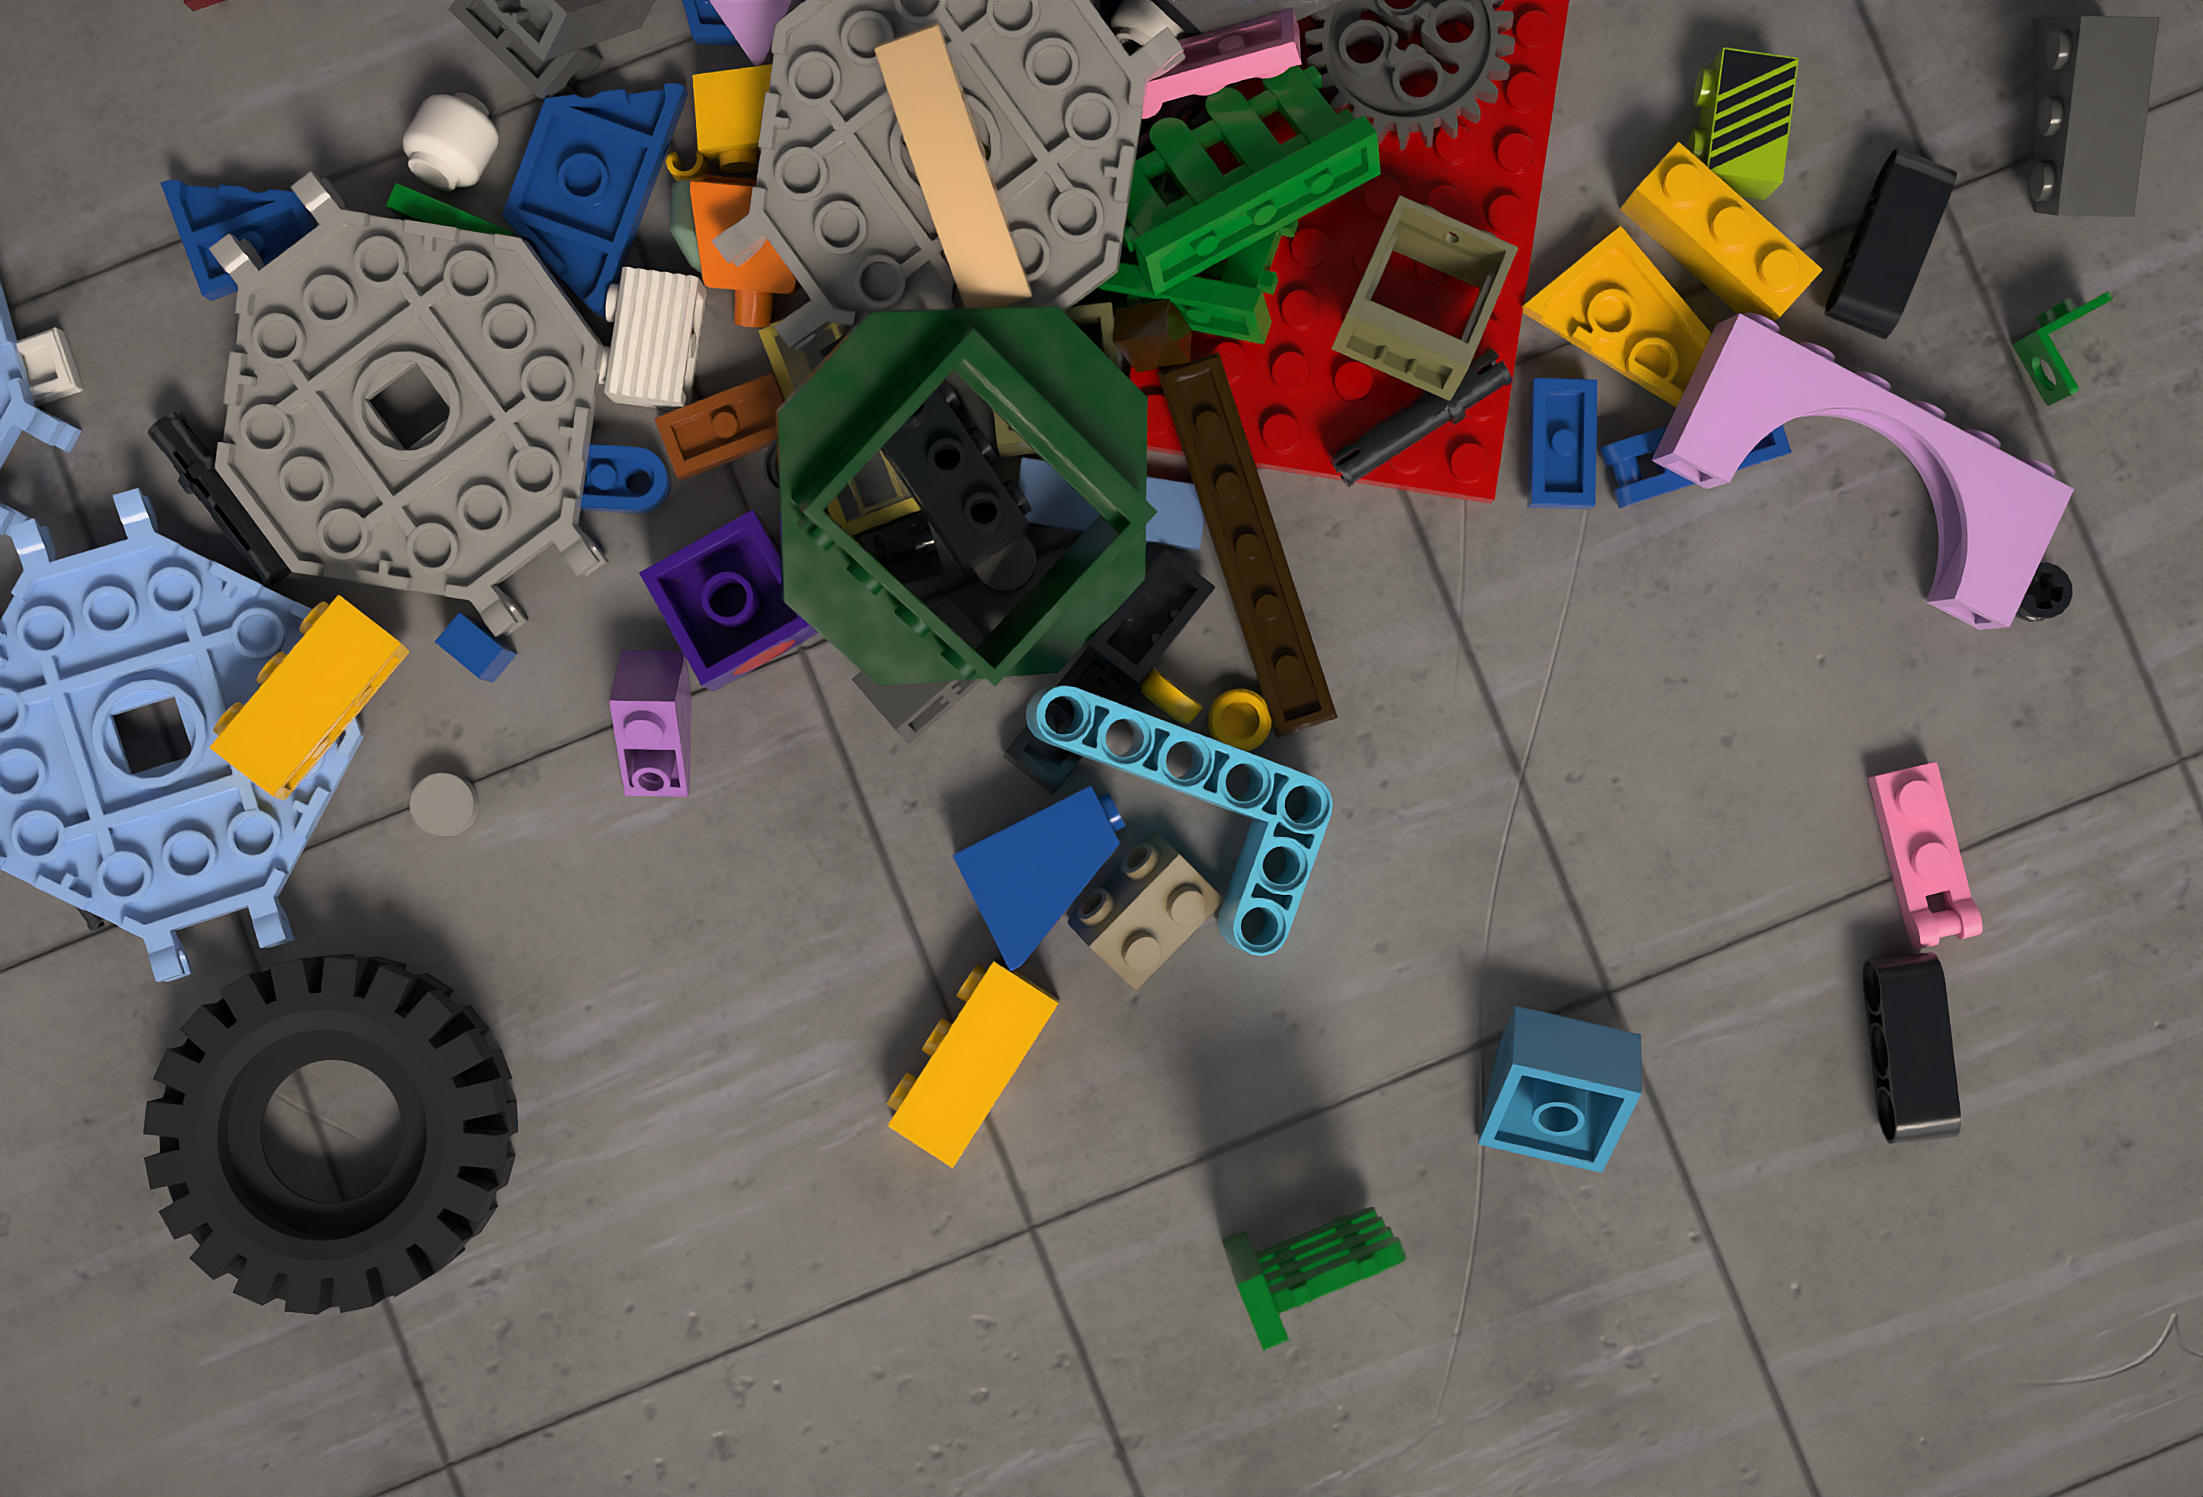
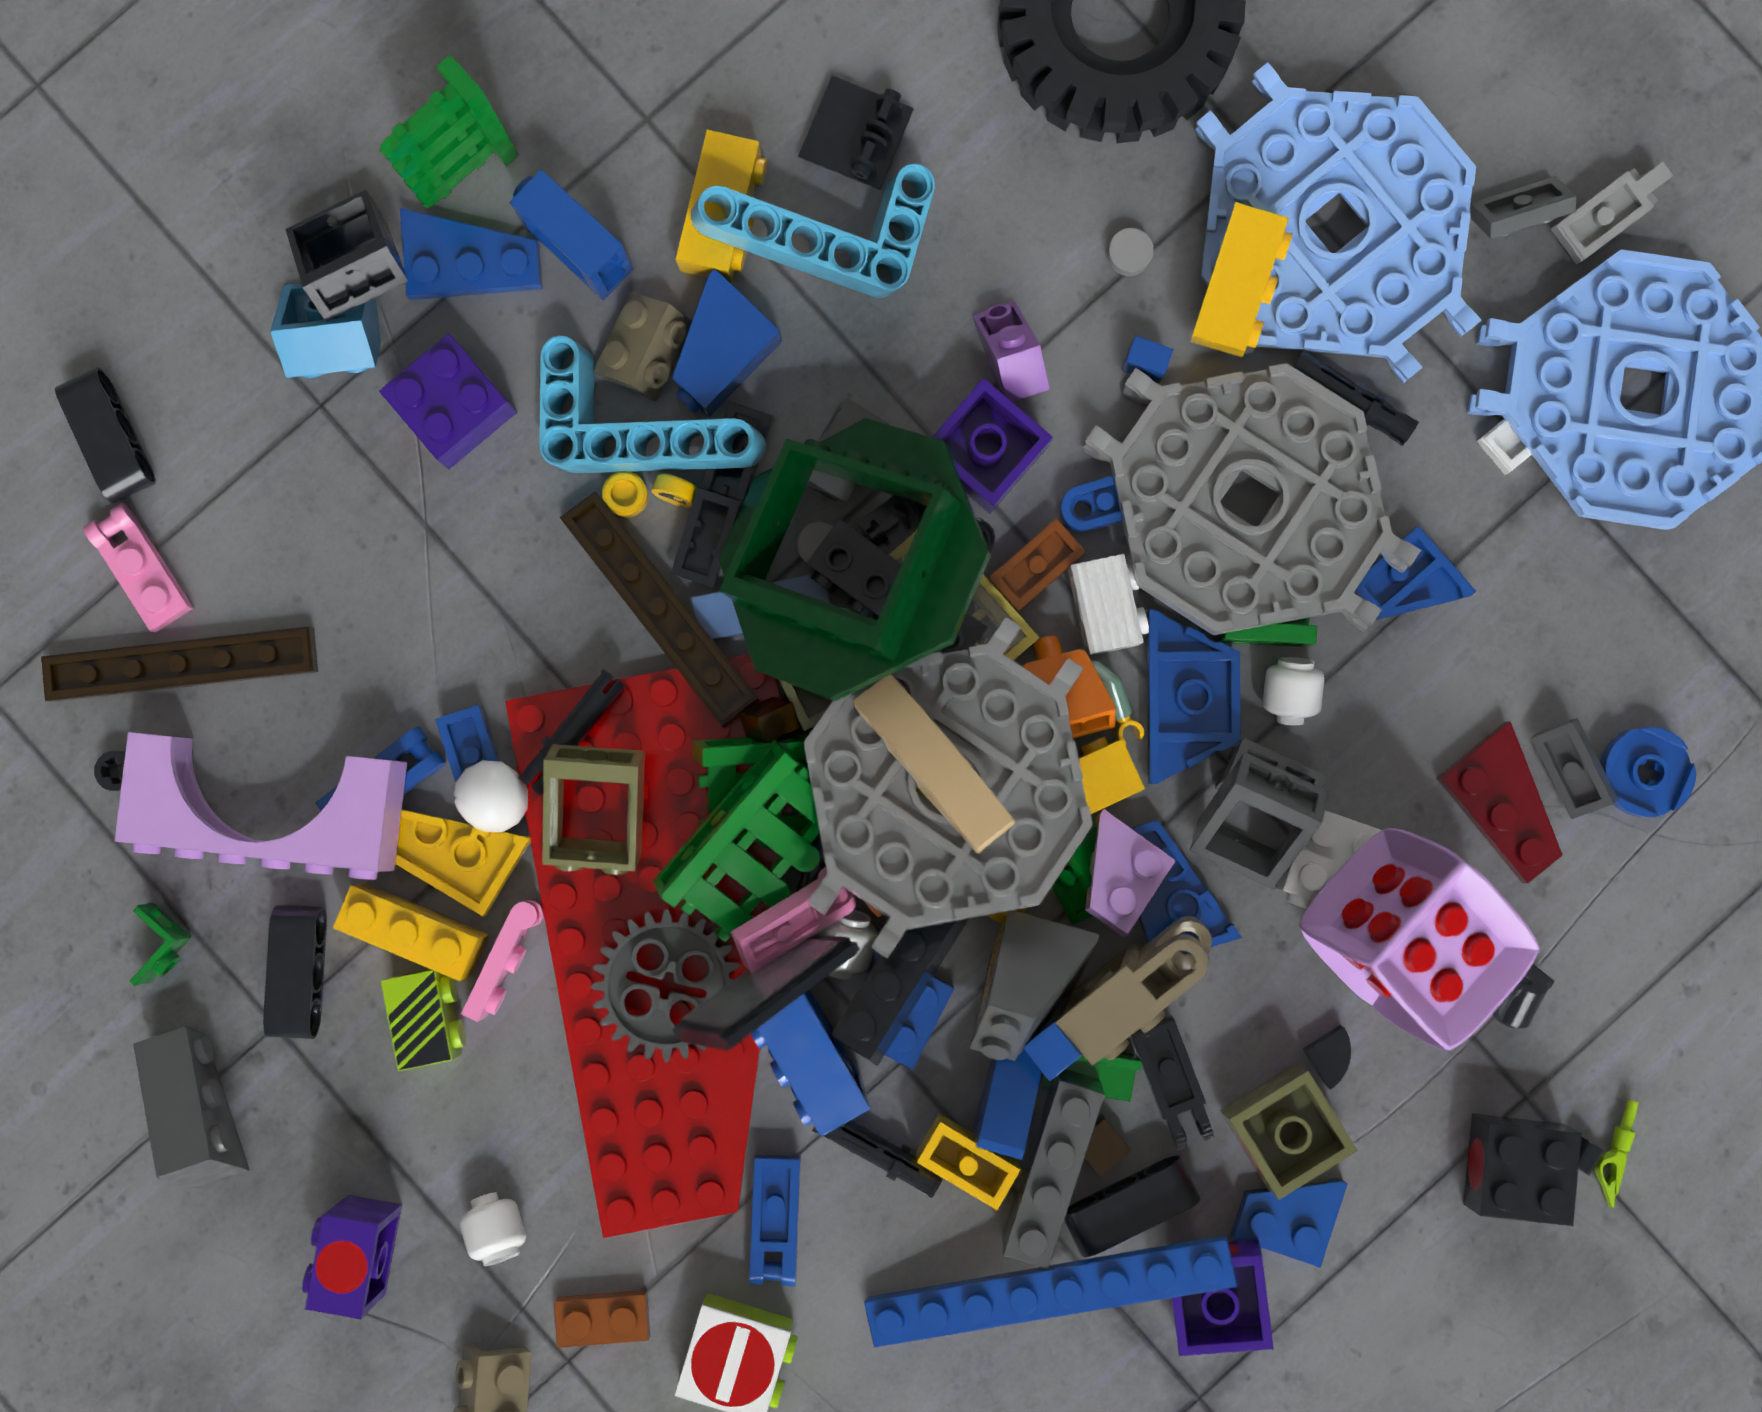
camera: 165 degrees right, 0 degrees up
(752, 1102) = (856, 131): none -> black hinge
(849, 952) = (824, 239): none -> medium azure beam
(1188, 1090) = (571, 234): none -> blue window
(1345, 1118) = (464, 259): none -> blue wing
(1433, 925) = (447, 401): none -> dark purple brick
(1499, 1124) = (356, 275): none -> black window
(1556, 374) = (491, 796): none -> white hair
(1609, 162) = (503, 958): none -> bright pink plate
(1911, 706) = (179, 664): none -> dark brown tile

